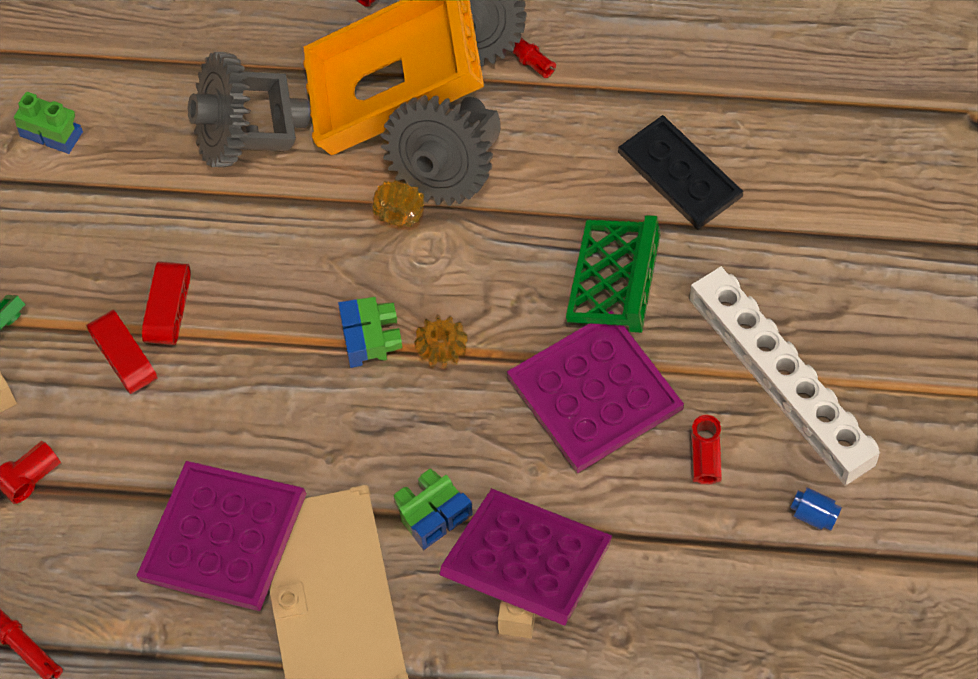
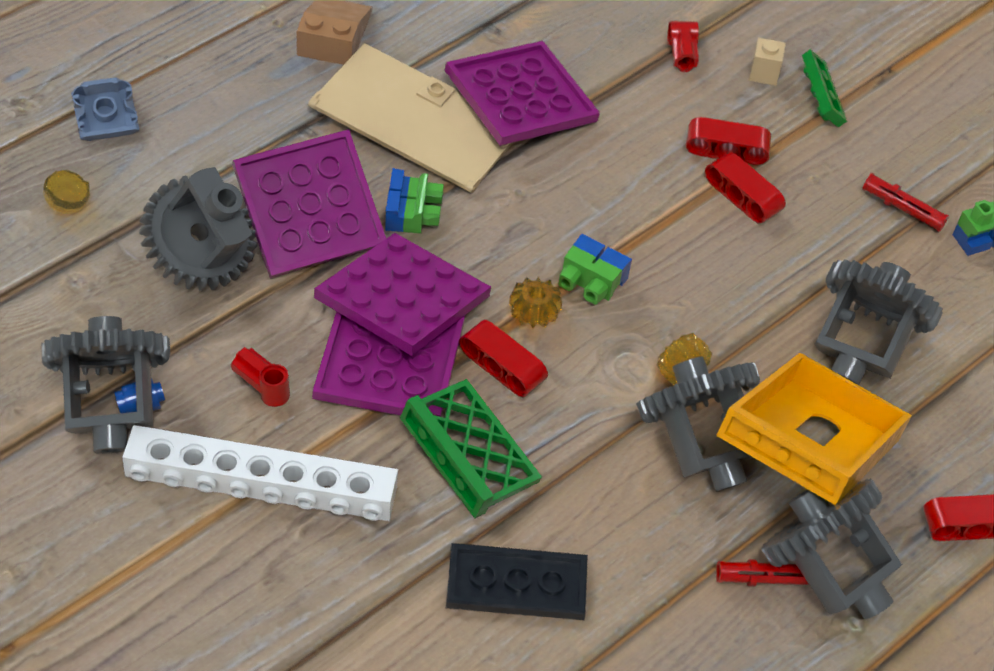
camera: 125 degrees right, 10 degrees down
(70, 205) = (895, 196): none -> red pin
(515, 319) = (503, 358): none -> red beam
(533, 425) = (402, 293): none -> magenta plate
(642, 600) = (210, 212): none -> dark grey piece
(835, 523) = (106, 347): none -> dark grey piece

